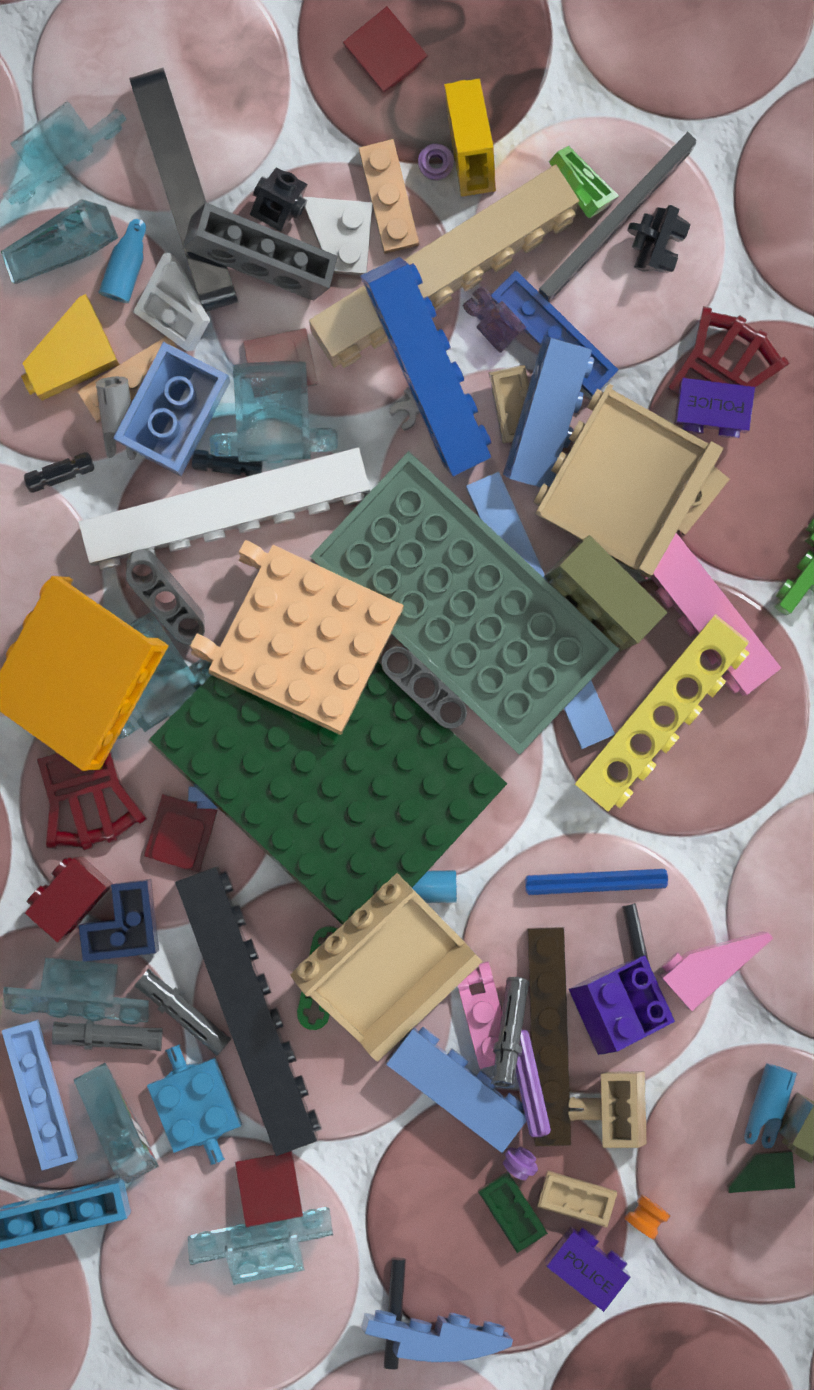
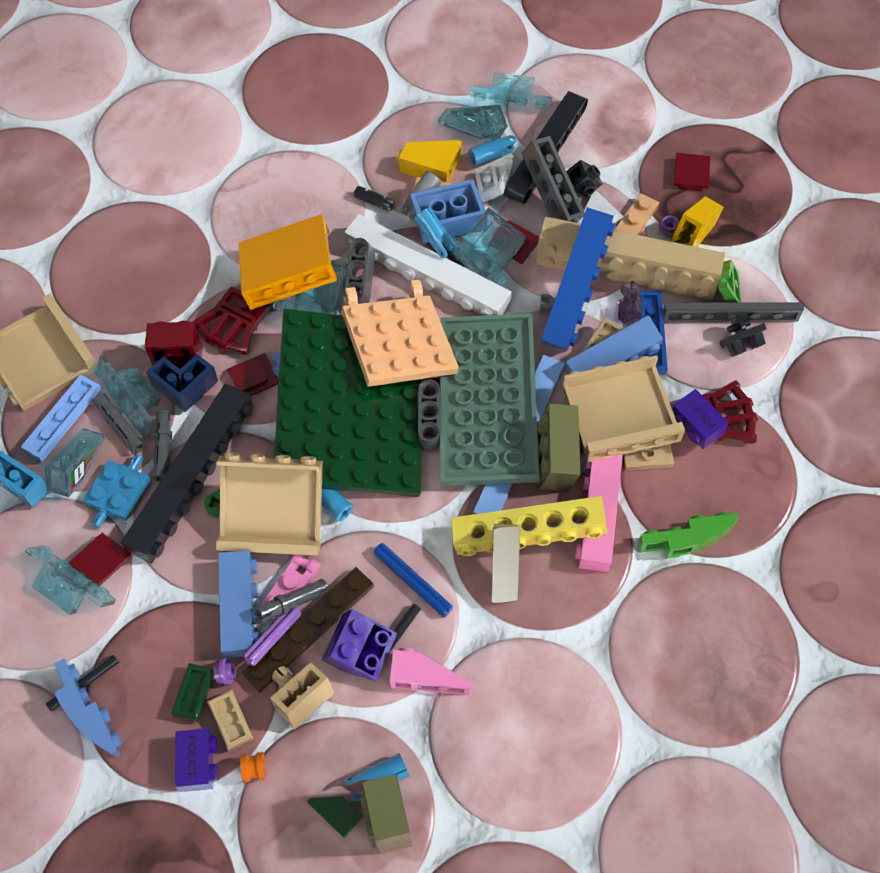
camera: 55 degrees right, 25 degrees down
(197, 464) = (434, 231): none -> dark azure piece
(679, 777) = (505, 563): none -> slope

